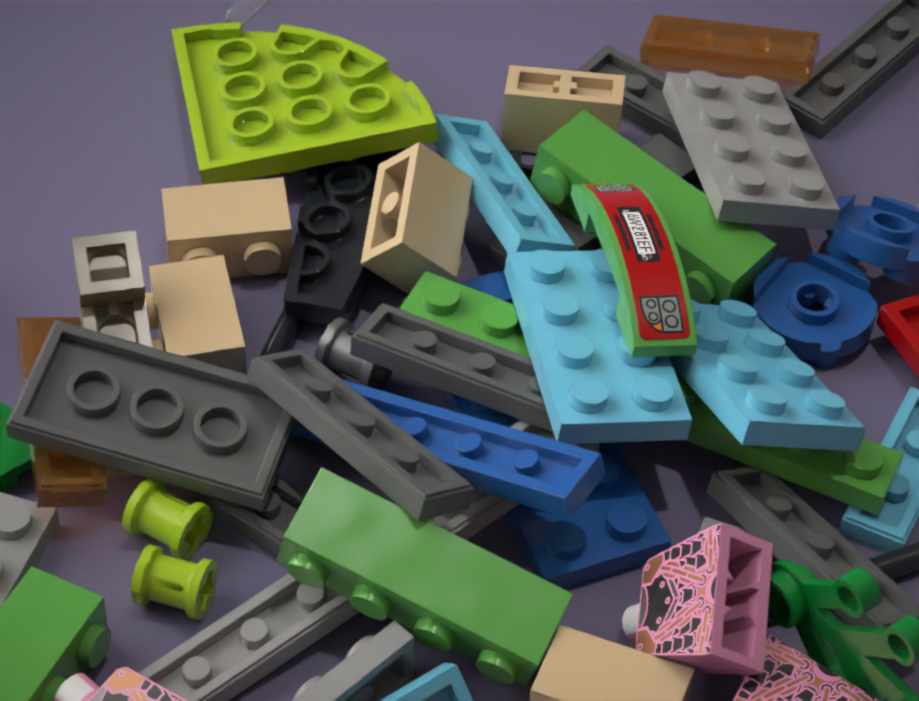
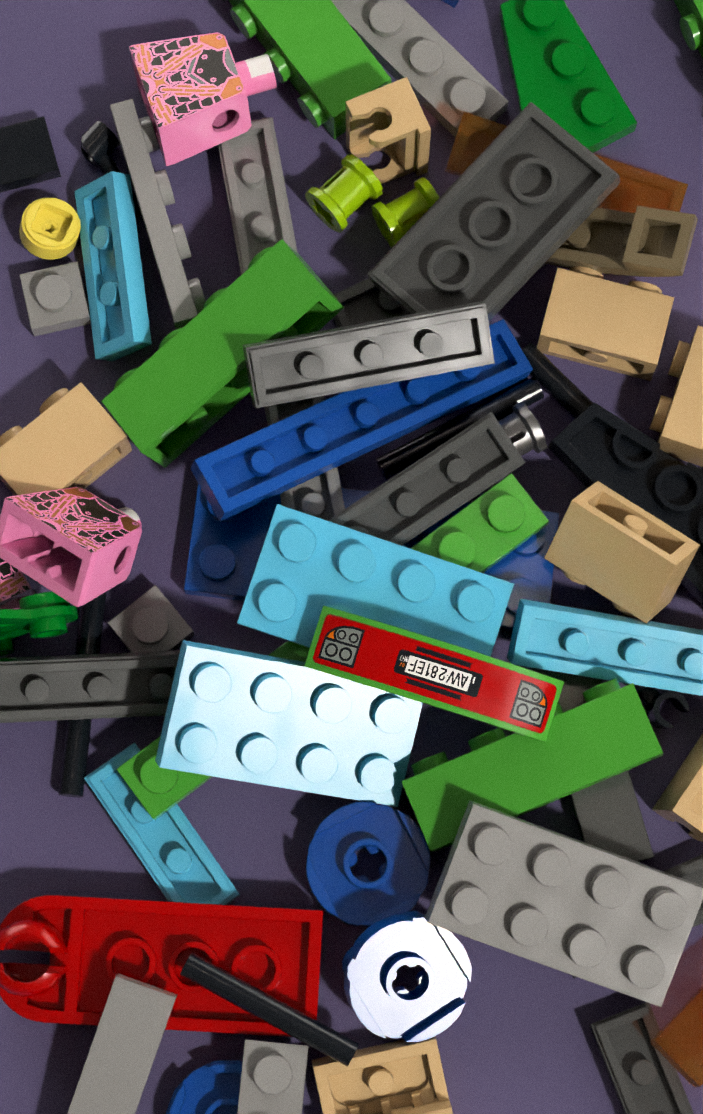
camera: 120 degrees right, 30 degrees up
(84, 534) = (390, 123): none -> tan hinge

